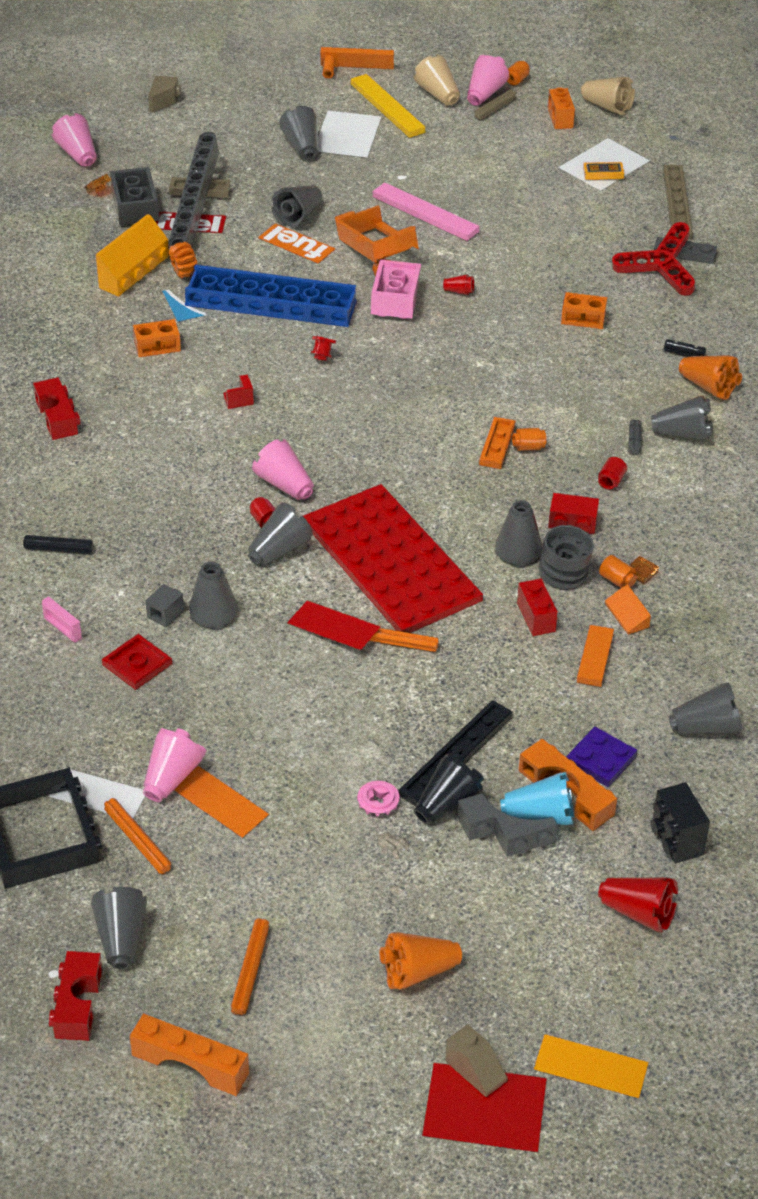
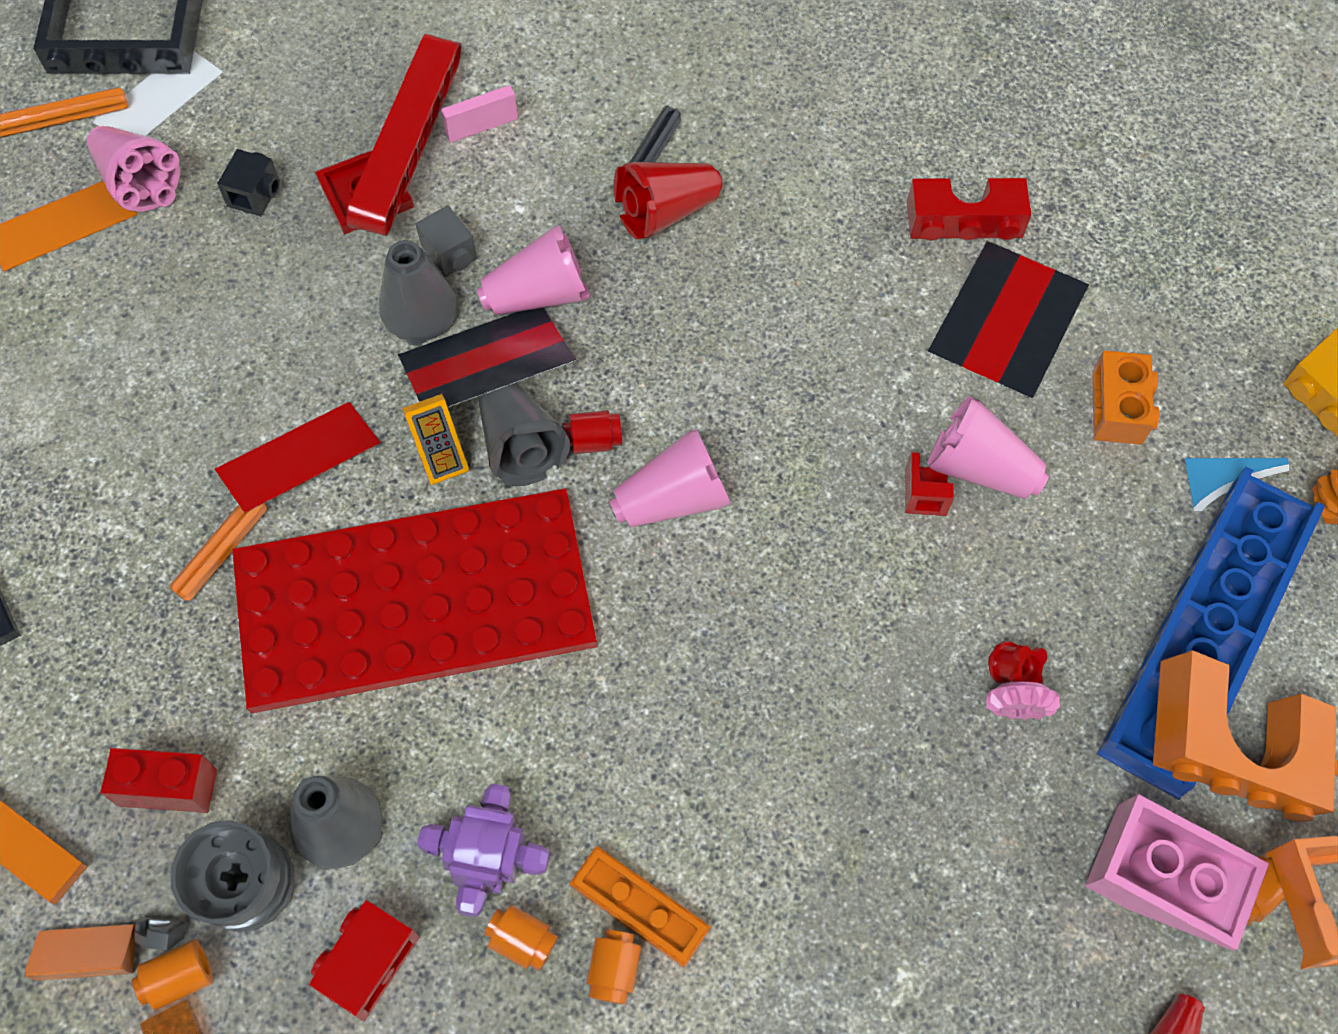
camera: 110 degrees right, 20 degrees up
(92, 641) = (404, 136): none -> red beam
(100, 520) = (663, 193): none -> red cone
(117, 389) = (1009, 319): none -> black sticker
(157, 708) = (249, 182): none -> black brick
(175, 551) = (535, 277): none -> bright pink cone
(212, 376) = (987, 453): none -> bright pink cone
(246, 560) = (486, 357): none -> black sticker
(302, 561) = (435, 439): none -> tile
(327, 271) = (1199, 747): none -> orange arch
(340, 335) = (1023, 700): none -> bright pink gear
(503, 486) = (483, 850): none -> medium lavender piece
(534, 469) = (520, 938): none -> orange brick
(604, 584) = (158, 932): none -> dark grey tile

